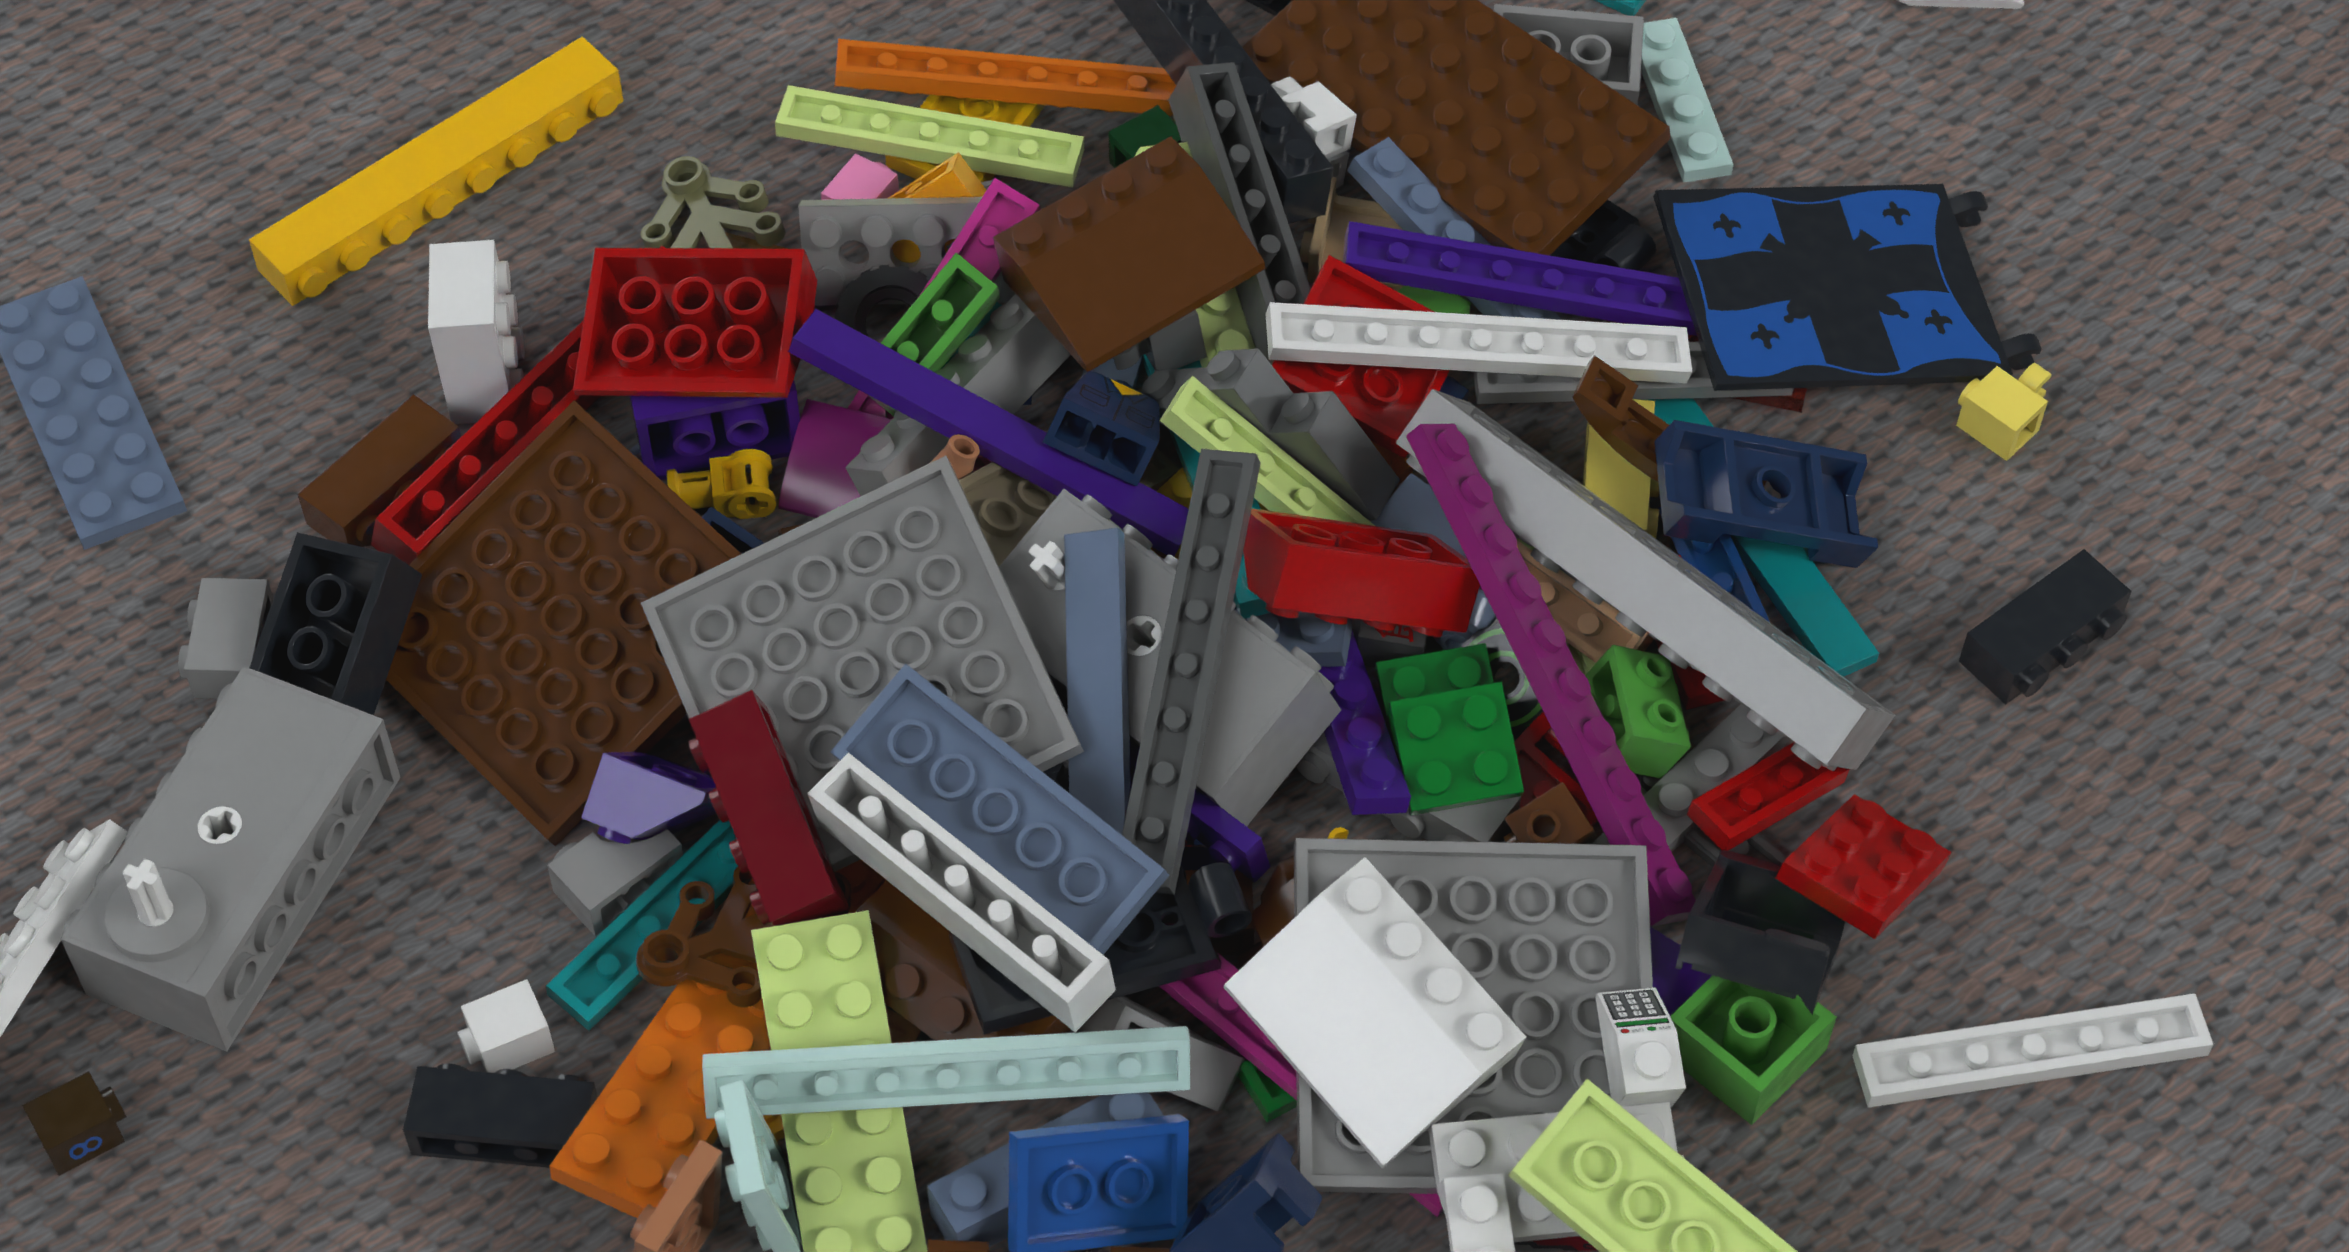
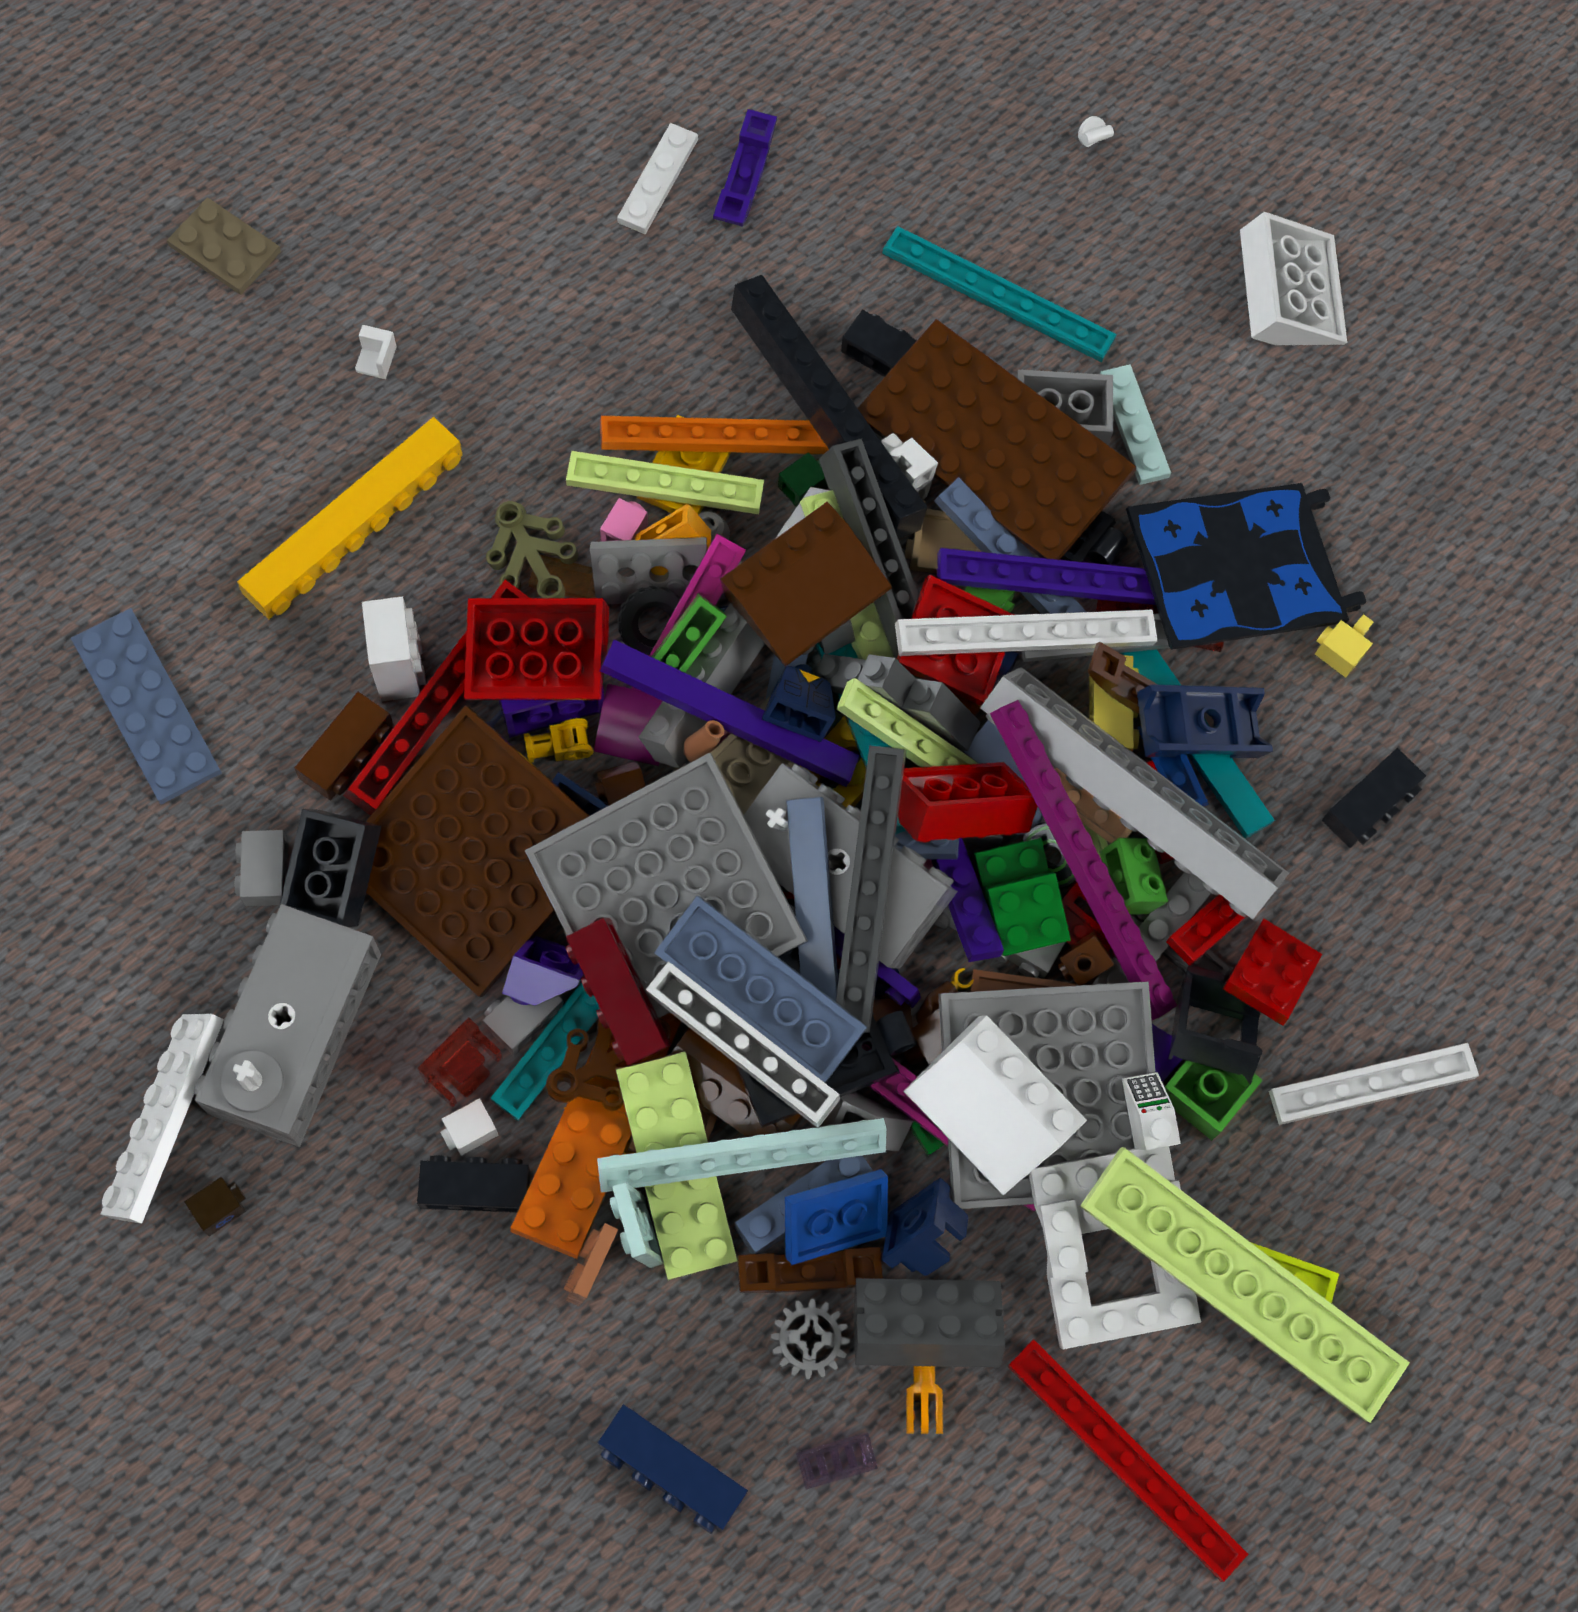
camera: 10 degrees left, 15 degrees up
(490, 920) = (459, 1062): none -> clear red panel

